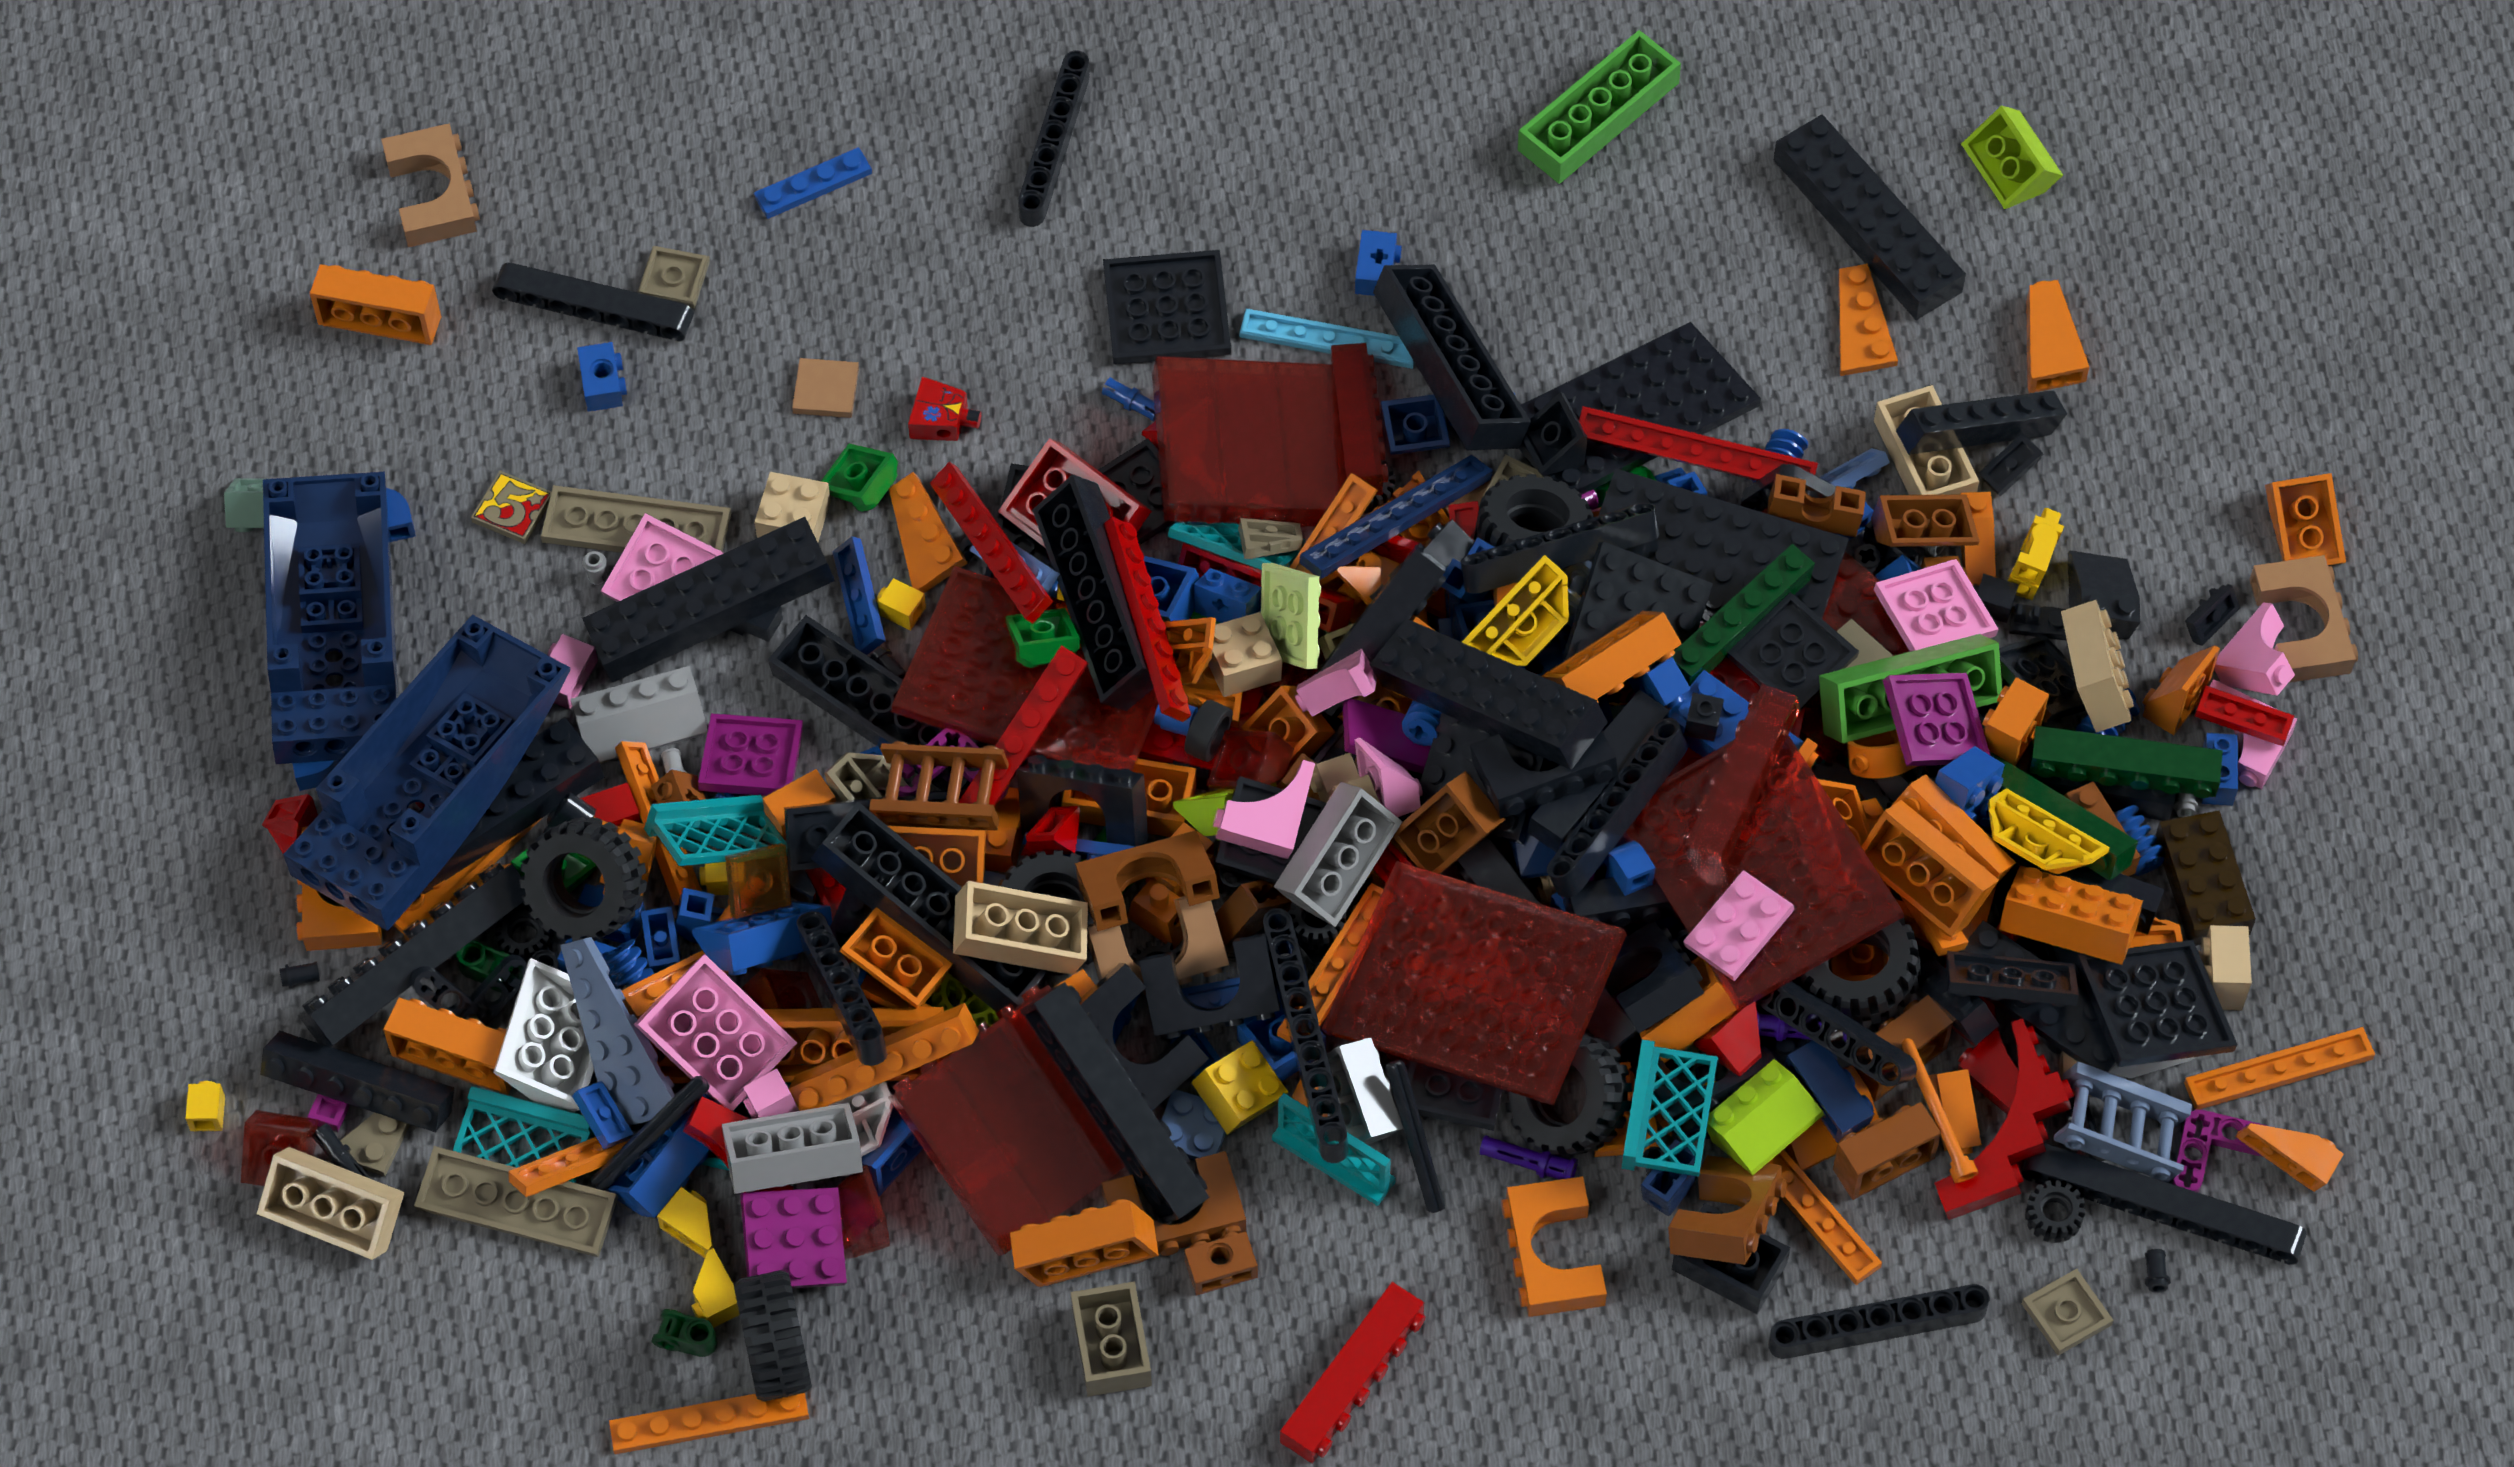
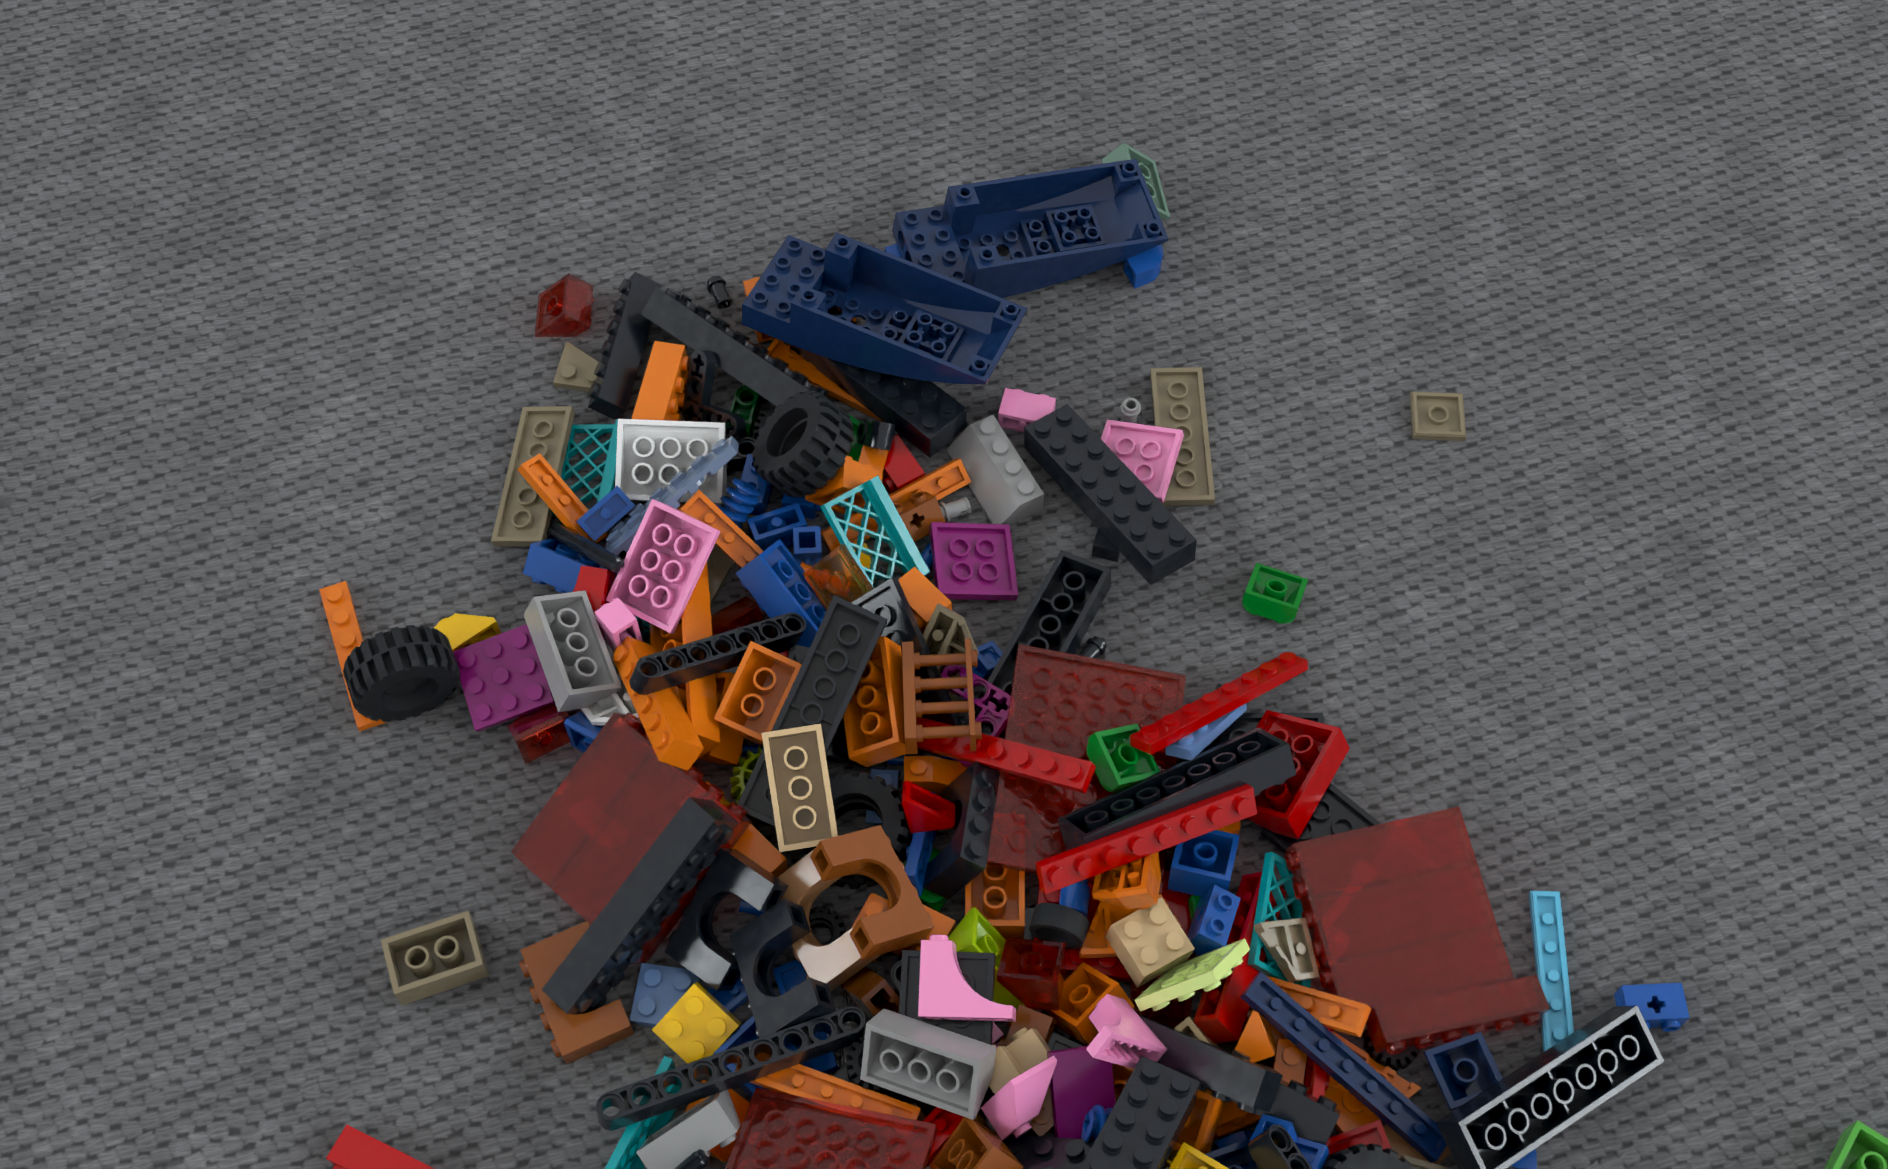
camera: 80 degrees right, 0 degrees up
(205, 1106) = (595, 255): yellow brick -> none
(328, 1111) = (597, 334): magenta plate -> none
(330, 1203) = (511, 346): tan brick -> none
(335, 1150) = (553, 352): black pin -> none
(375, 304) = (1334, 208): orange brick -> none
(435, 151) = (1447, 247): medium nougat arch -> none
(512, 507) = (1176, 345): tile -> none
(593, 300) = (1391, 362): black beam -> none
(596, 362) = (1305, 380): blue brick -> none
(679, 1331) = (426, 611): dark green piece -> none
(688, 1221) = (512, 610): yellow slope -> none
(789, 499) = (1224, 547): tan brick -> none
(813, 183) = (1571, 502): blue plate -> none
(825, 387) = (1361, 552): medium nougat tile -> none
(859, 595) = (1161, 613): blue plate -> none
(901, 604) = (1153, 649): yellow brick -> none
(924, 535) = (1227, 658): orange wing -> none
(940, 412) = (1360, 645): red torso -> none
(1050, 149) = (1701, 681): black beam -> none
(1084, 1243) = (513, 912): orange brick -> none
(1130, 398) = (1427, 796): blue pin -> none
(1166, 306) = (1537, 819): black plate -> none
(1209, 1276) = (515, 1028): dark orange brick -> none

